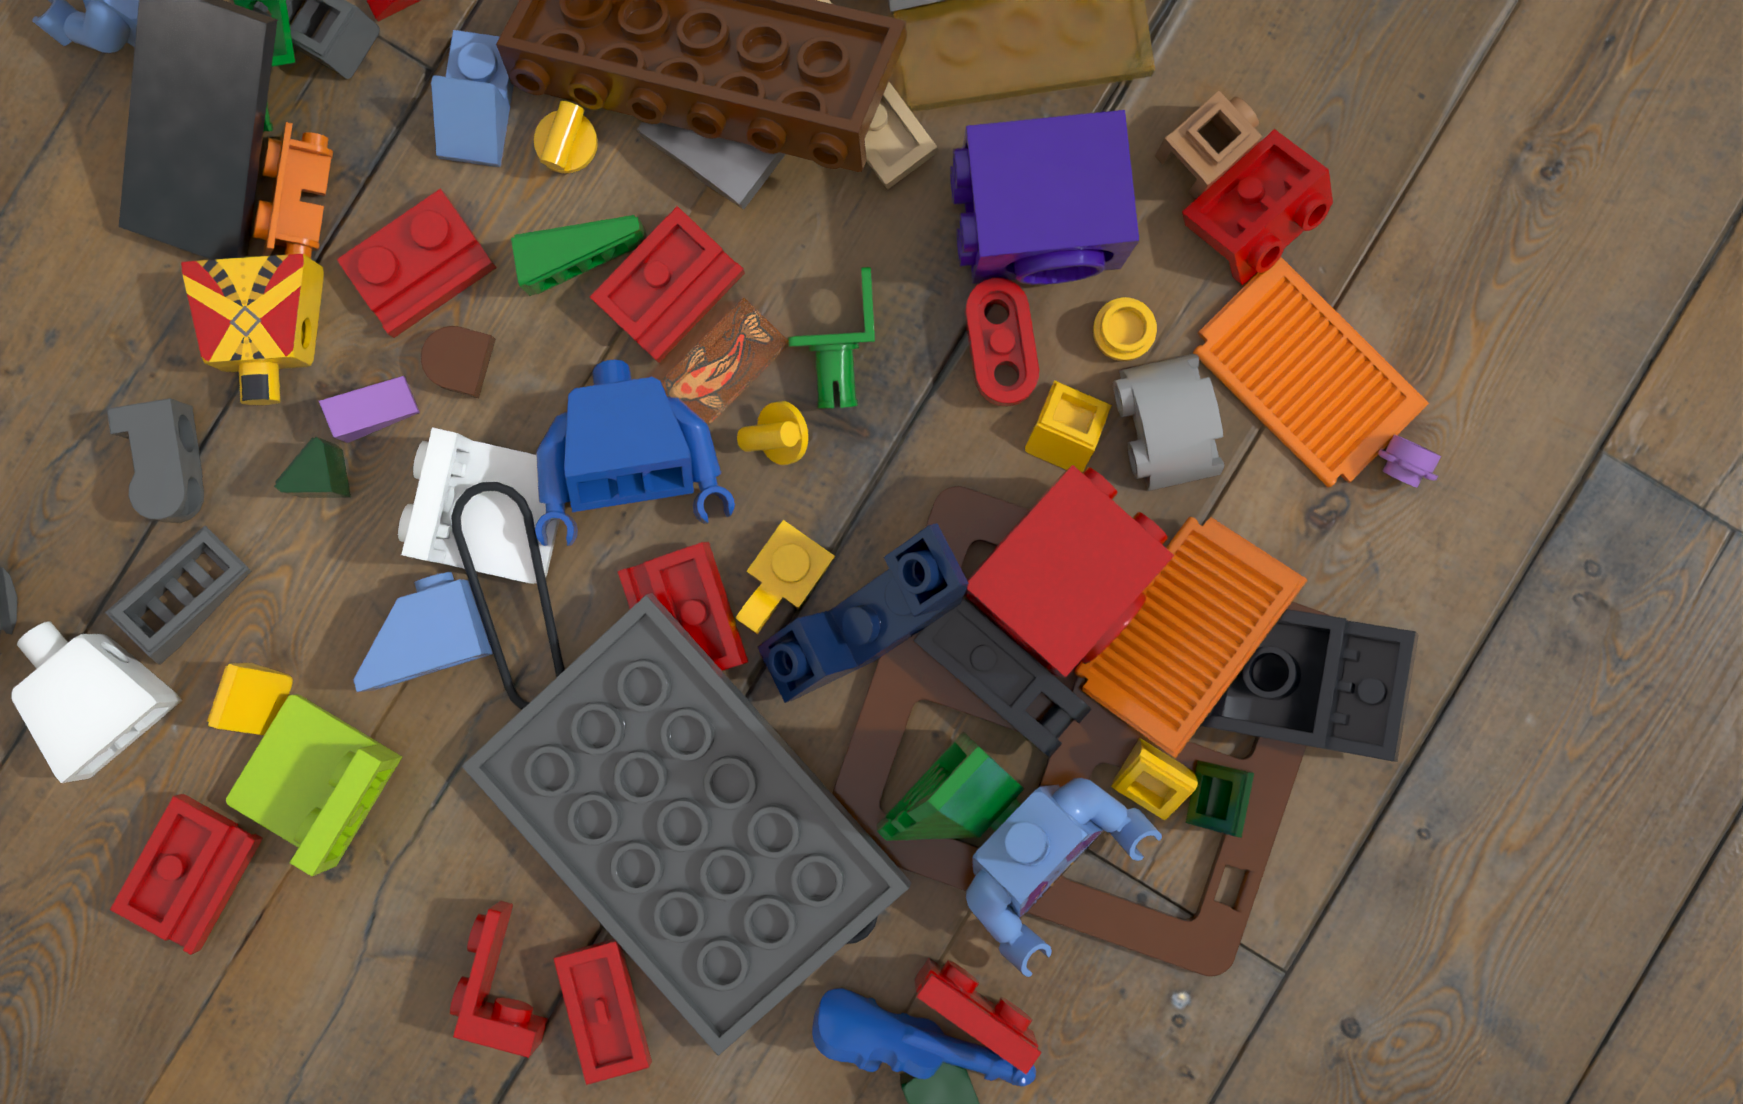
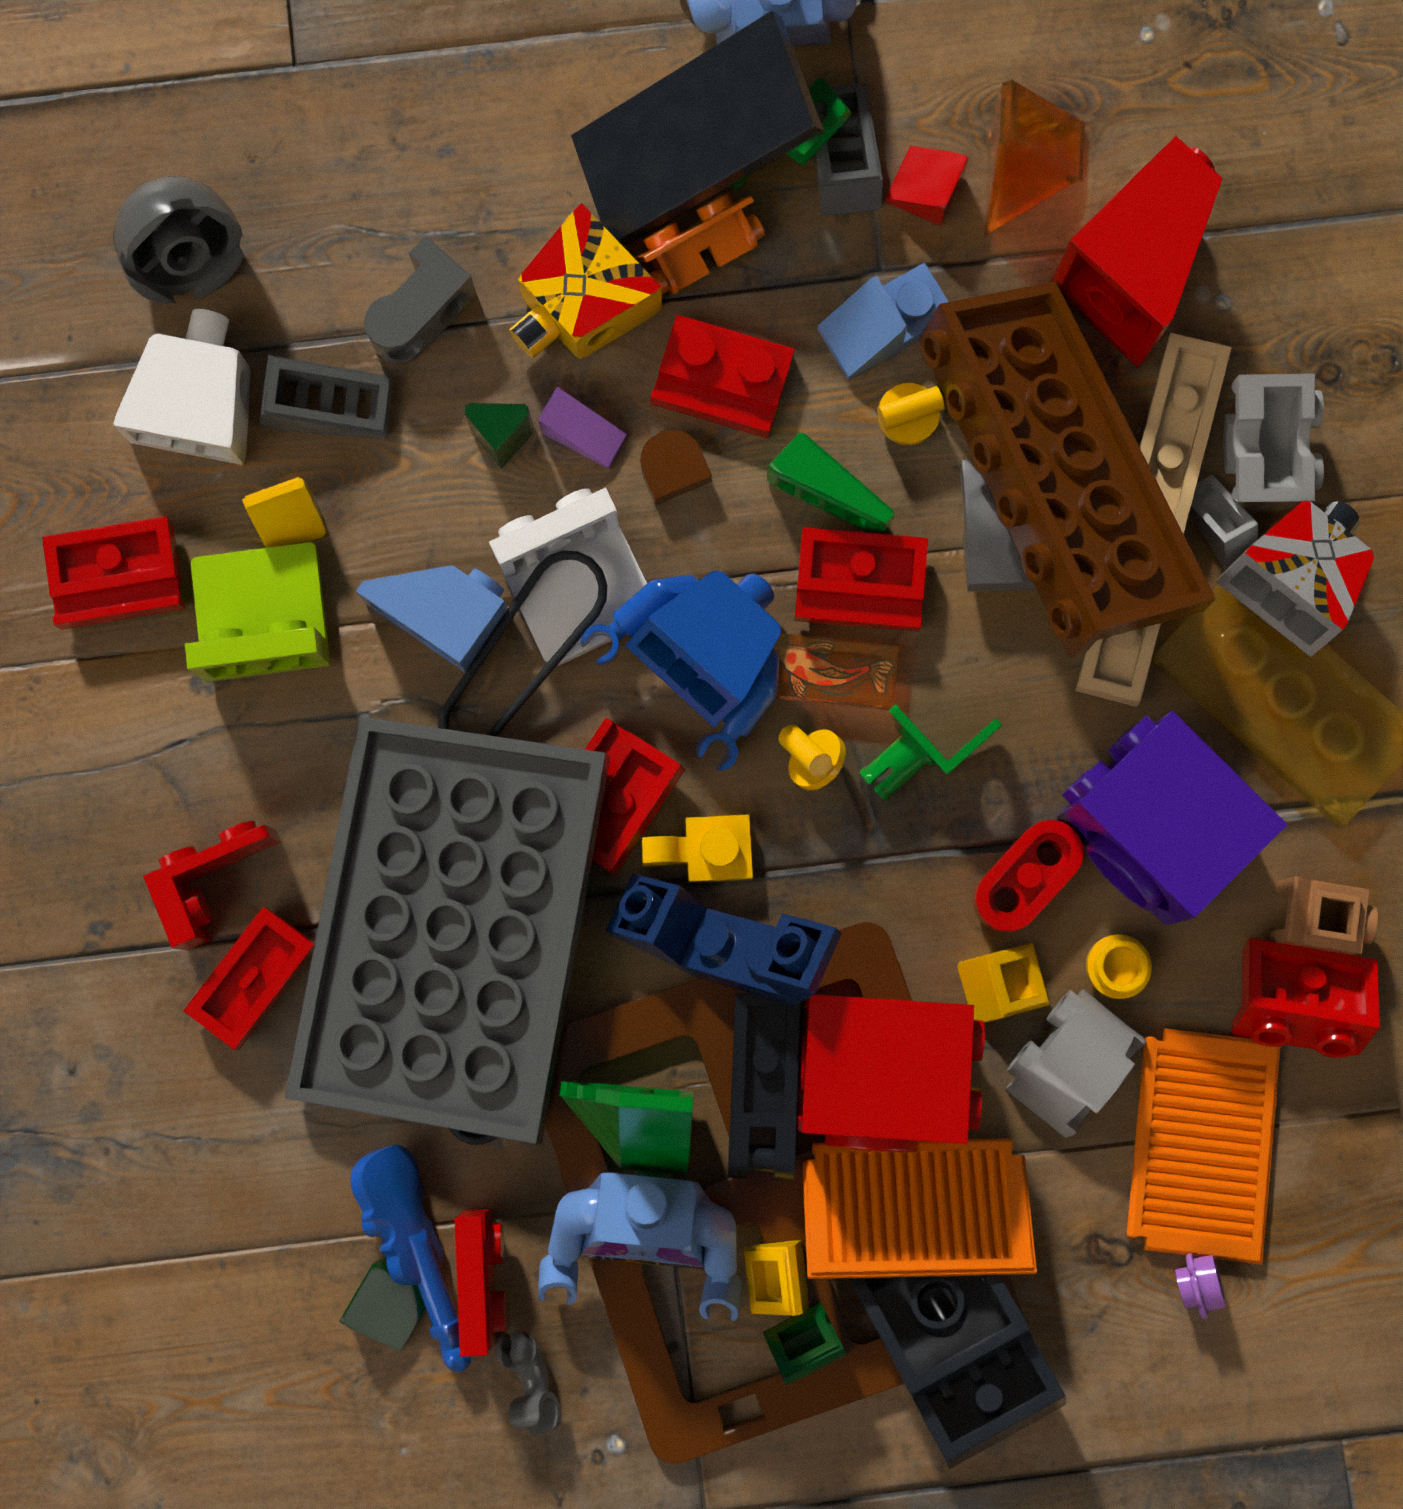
camera: 50 degrees right, 5 degrees down
(1108, 1039) = (538, 1408): none -> dark grey arm

